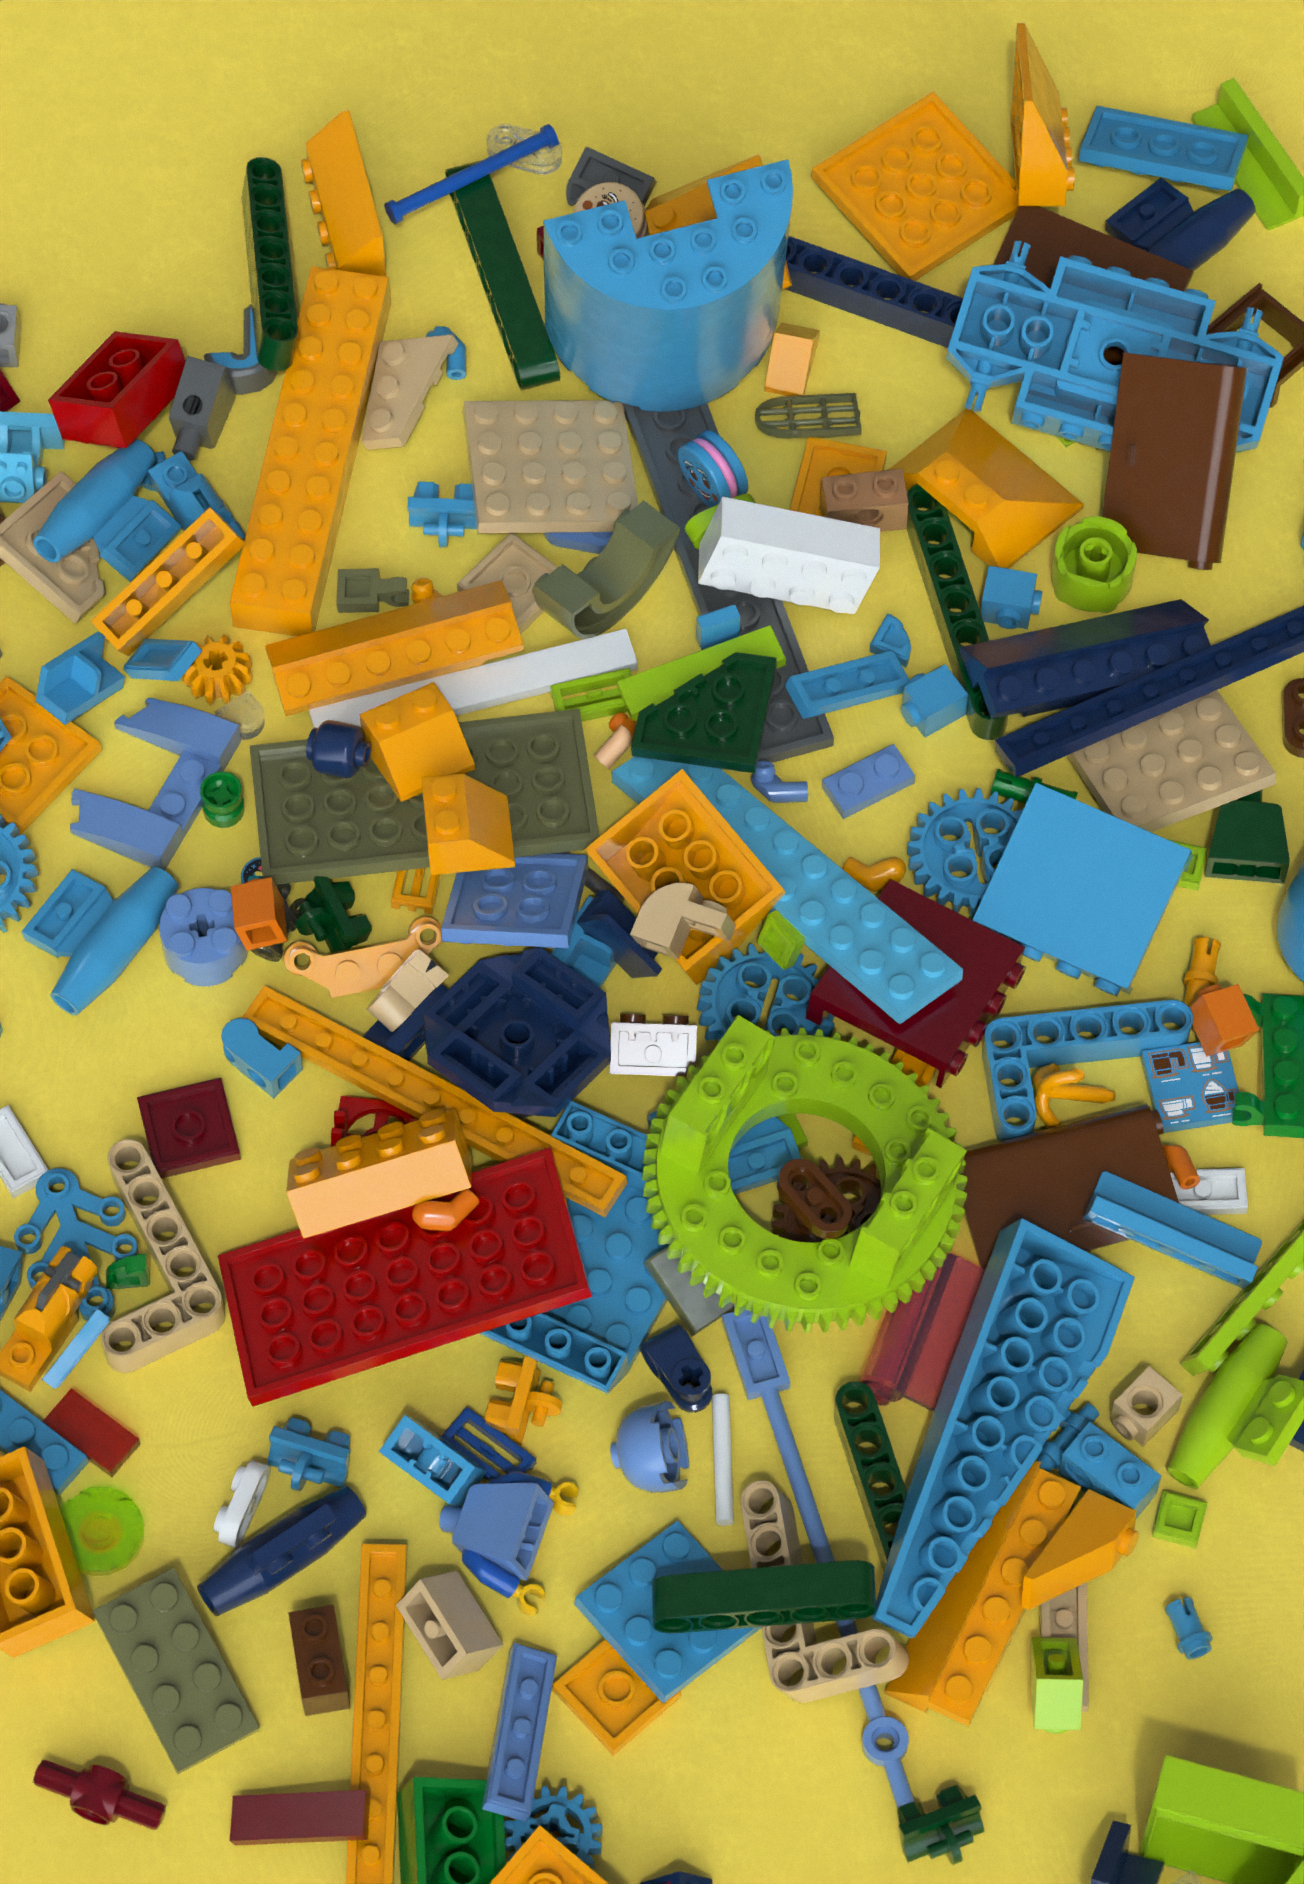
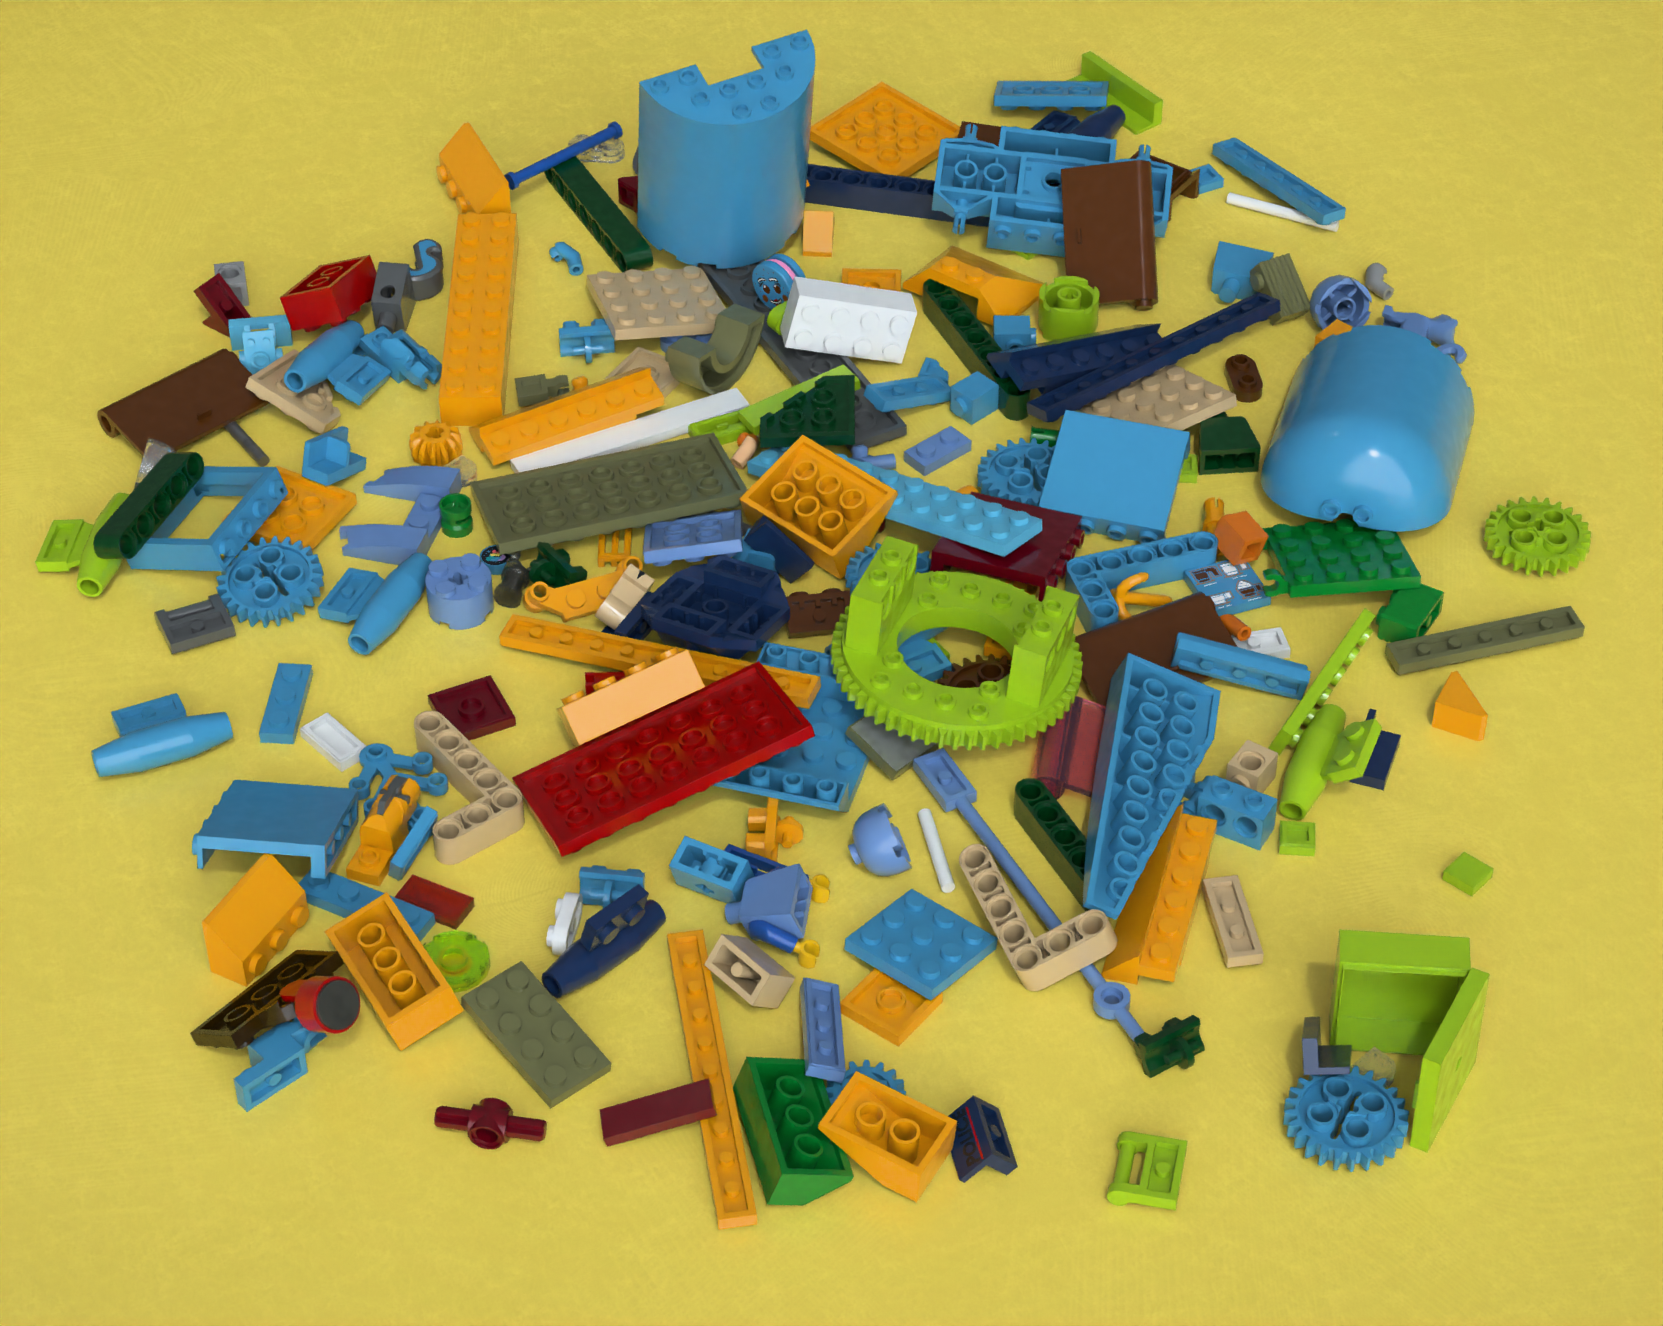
camera: 10 degrees left, 20 degrees down
(128, 1273) = (444, 796): green tile -> none
(162, 659) = (393, 440): dark azure tile -> none
(168, 582) = (391, 389): light orange brick -> none
(258, 1058) = (518, 658): dark azure leg -> none
(259, 913) = (501, 564): orange brick -> none
(269, 264) = (427, 216): dark green beam -> none
(319, 1660) = (650, 1010): reddish brown brick -> none
(338, 748) = (540, 465): dark blue head -> none
(399, 386) = (537, 278): tan wing -> none
(416, 740) = (596, 455): light orange slope -> none
(445, 1215) = (687, 709): orange arm -> none
(466, 825) = (644, 491): light orange slope -> none
(671, 914) = (820, 514): tan brick -> none
(676, 1363) = (888, 788): dark blue piece -> none
(717, 626) = (805, 367): dark azure tile -> none
(763, 1596) = (994, 906): dark green beam -> none
(768, 427) = (840, 260): olive window -> none
(781, 940) = (900, 527): lime tile -> none
(816, 1200) = (970, 652): reddish brown plate -> none
(867, 499) = (902, 278): medium nougat brick -> none
(1038, 130) = (960, 81): light orange slope -> none
(1056, 1684) = (1237, 937): lime slope -> none
(1081, 1549) = (1229, 854): light orange slope -> none
(1192, 1637) = (1331, 905): dark azure pin -> none

